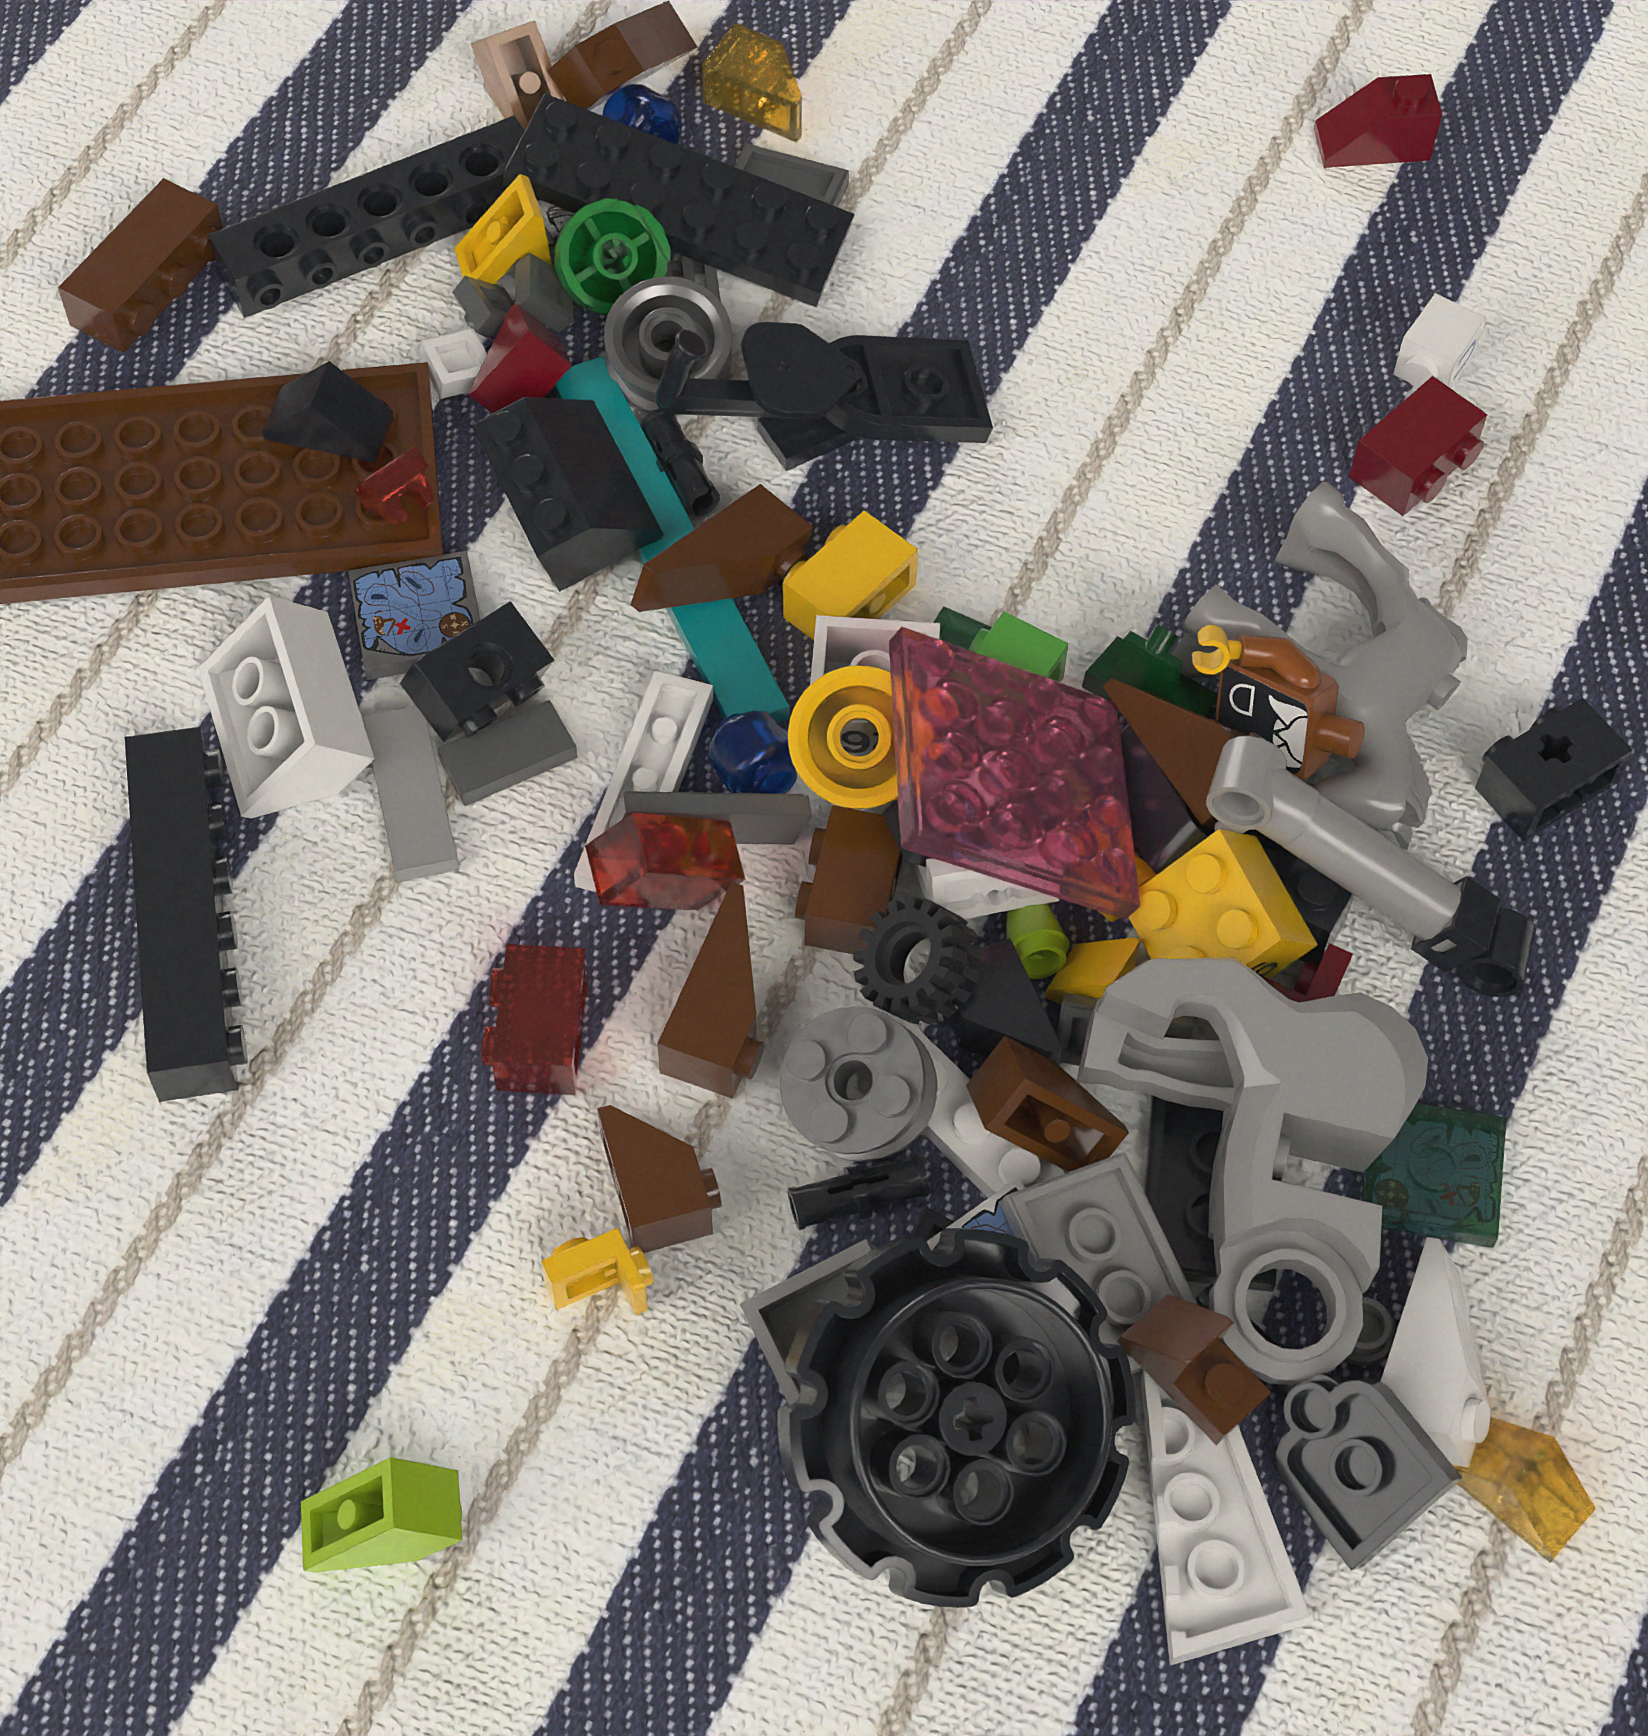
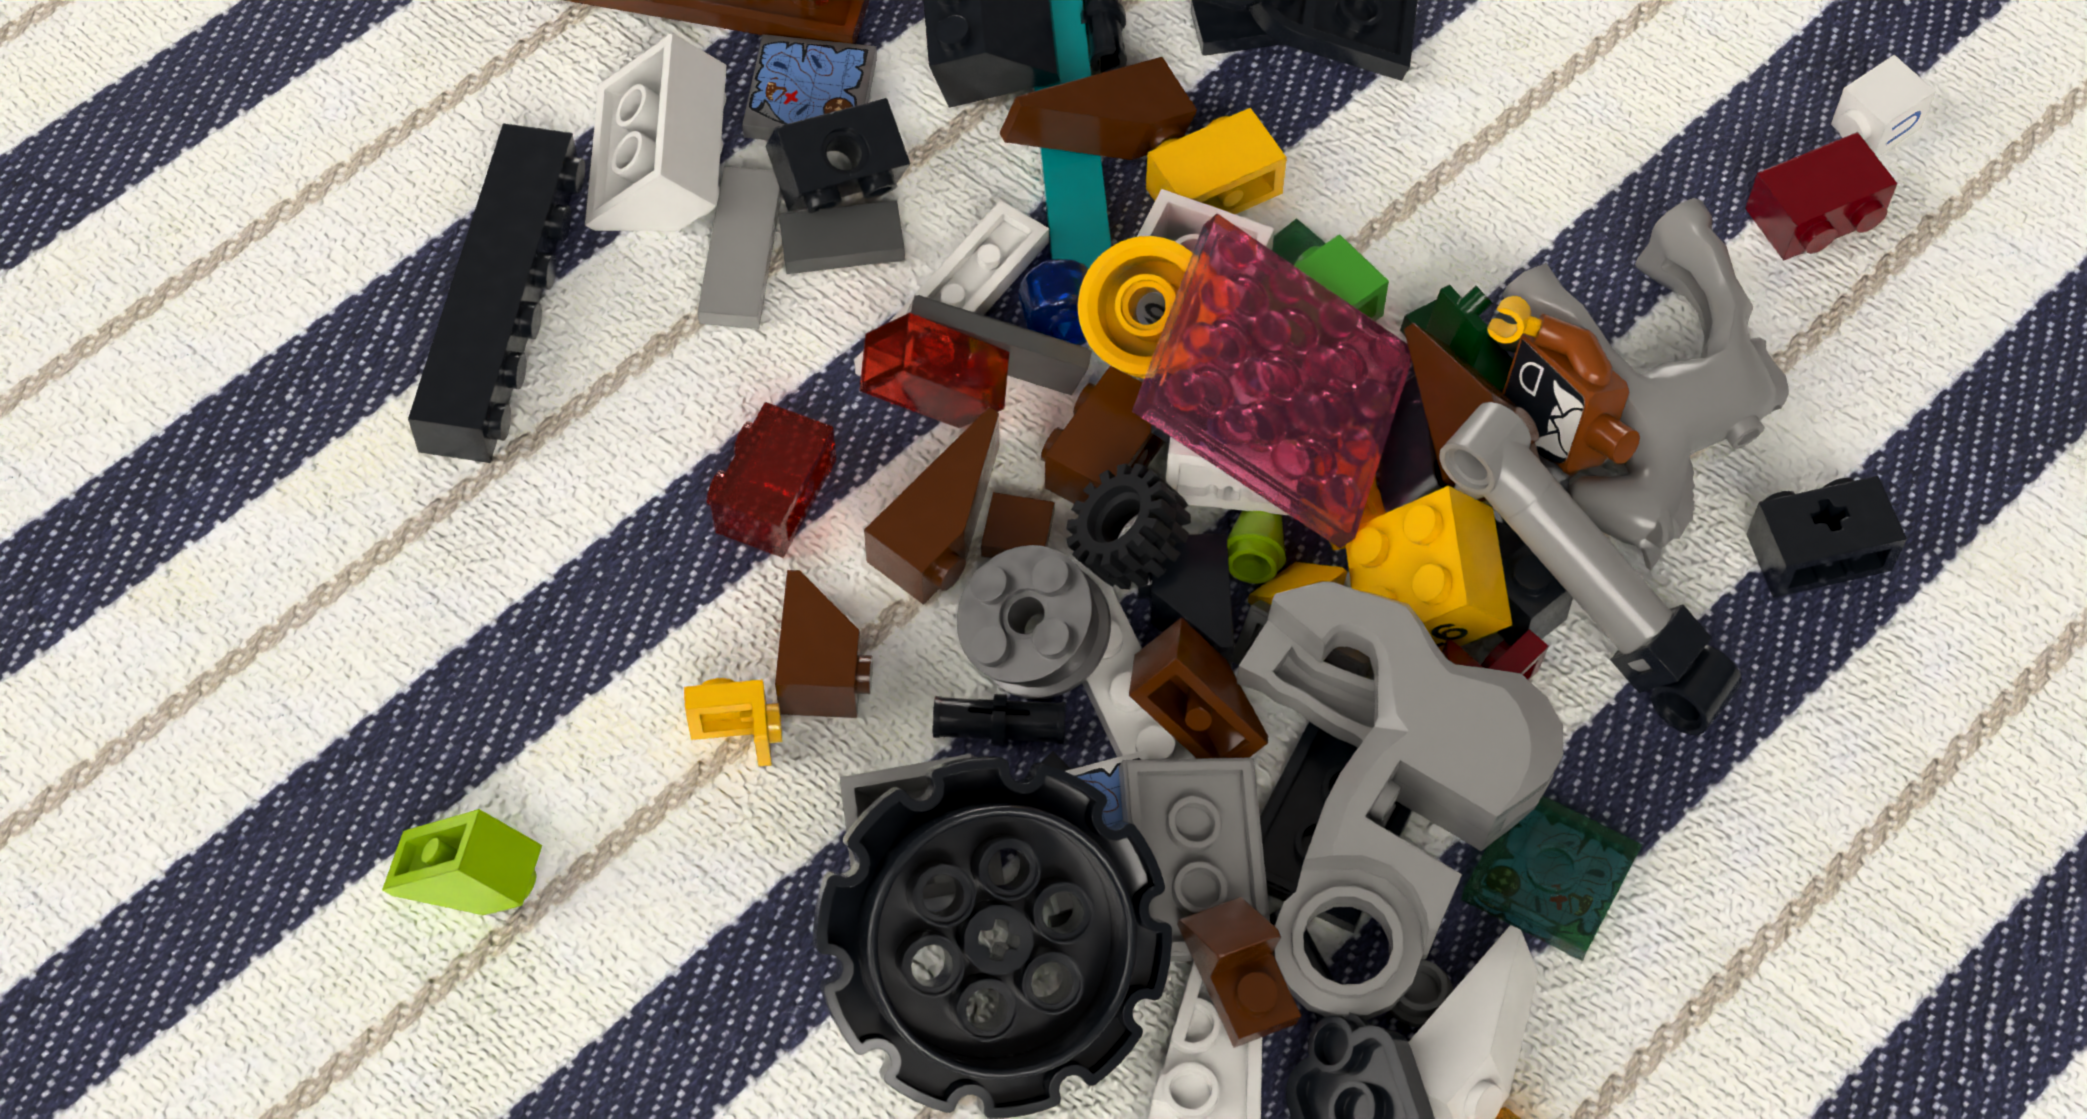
camera: 20 degrees right, 0 degrees up
(796, 992) = (1016, 523): none -> reddish brown tile

